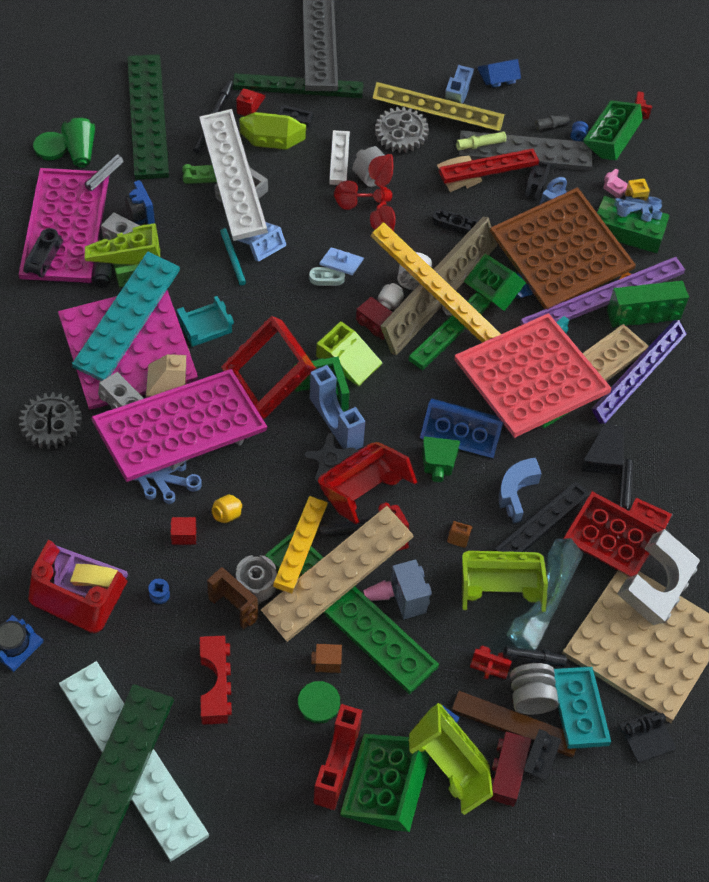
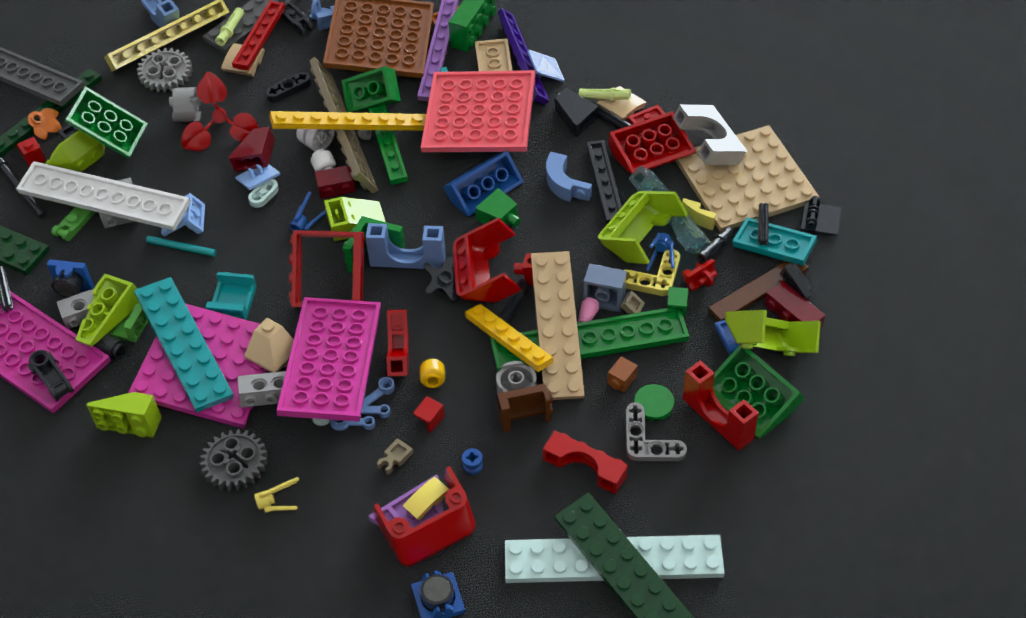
camera: 50 degrees left, 5 degrees down
(30, 465) = (266, 498): none -> light yellow plant
(41, 325) = (127, 413): none -> lime slope
(130, 530) = (396, 454): none -> dark tan plate
(228, 473) = (398, 343): none -> red arch
(264, 719) = (645, 445): none -> light grey beam
(284, 93) = (47, 122): none -> orange plate
(299, 127) = (106, 122): none -> green slope
(314, 319) = (300, 221): none -> blue plant
(339, 157) = (156, 125): white plate -> none
(359, 242) = (253, 150): none -> dark red slope
(413, 623) = (632, 303): none -> dark tan plate
(444, 659) = (678, 298): none -> green panel
(459, 534) = (574, 237): dark orange slope -> none
(463, 632) = (660, 279): none -> light yellow beam
(503, 610) = (662, 243): none -> blue plant
(534, 689) = (741, 255): light grey wheel -> none
(563, 620) = (700, 217): none -> light yellow slope
(589, 685) = (763, 224): none -> black axle
(641, 395) = (545, 65): none -> piece
(646, 467) = (609, 94): none -> yellowish green pin
(650, 483) = (623, 108): none -> tan slope

